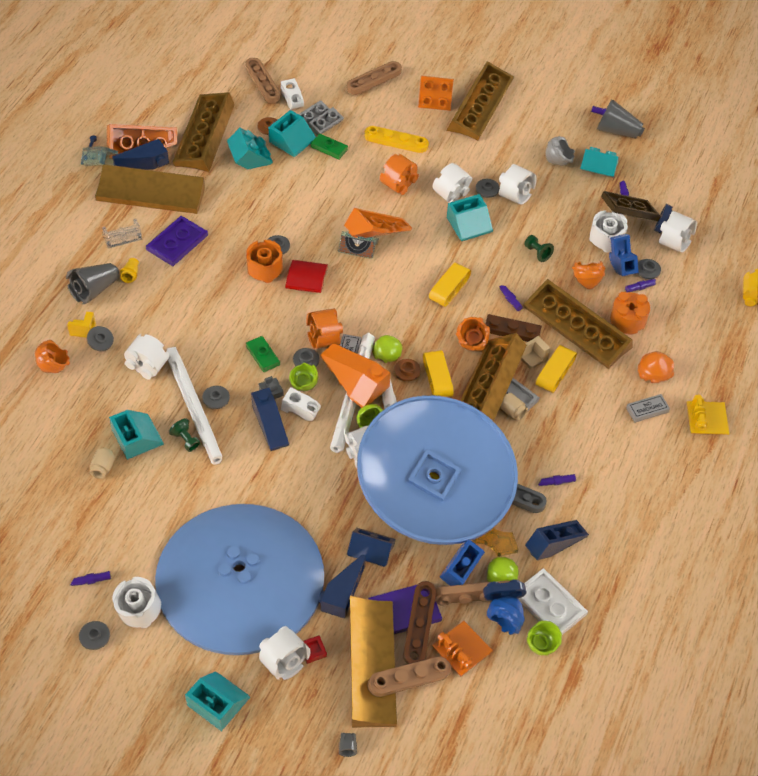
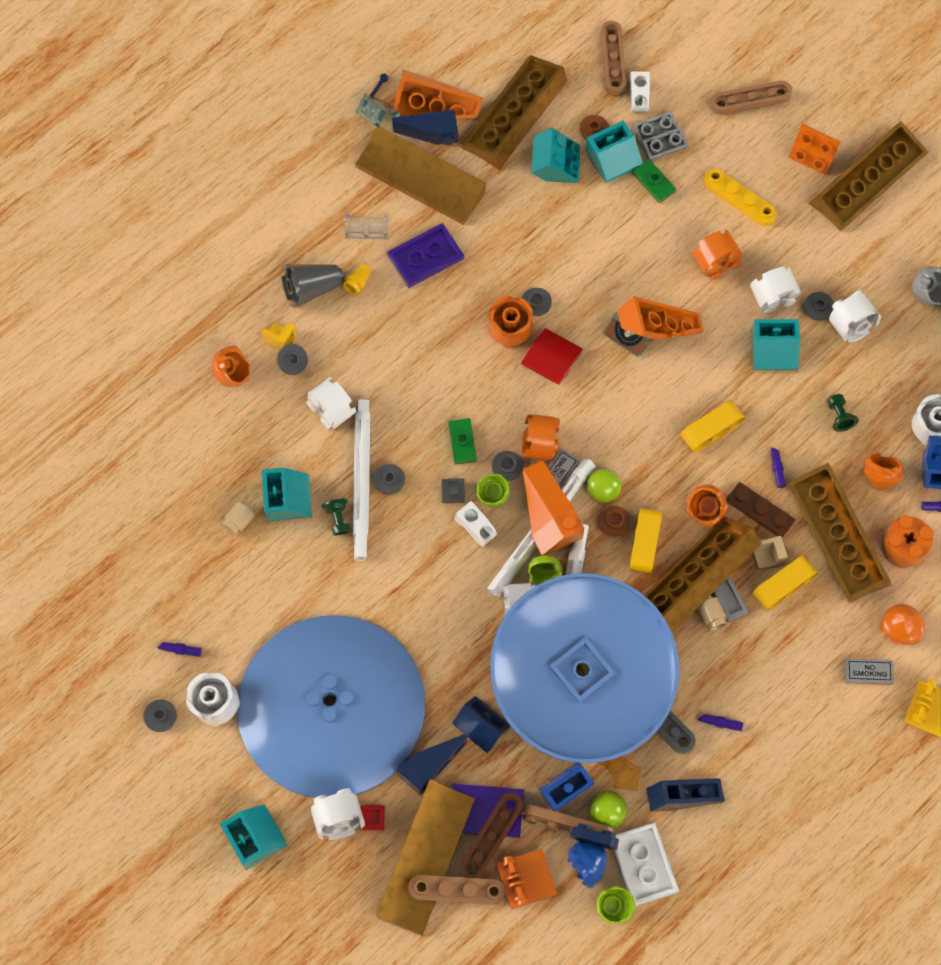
camera: 25 degrees right, 15 degrees up
(269, 419) = (435, 530): dark blue slope -> none
(348, 745) = (363, 937): dark grey hose -> none

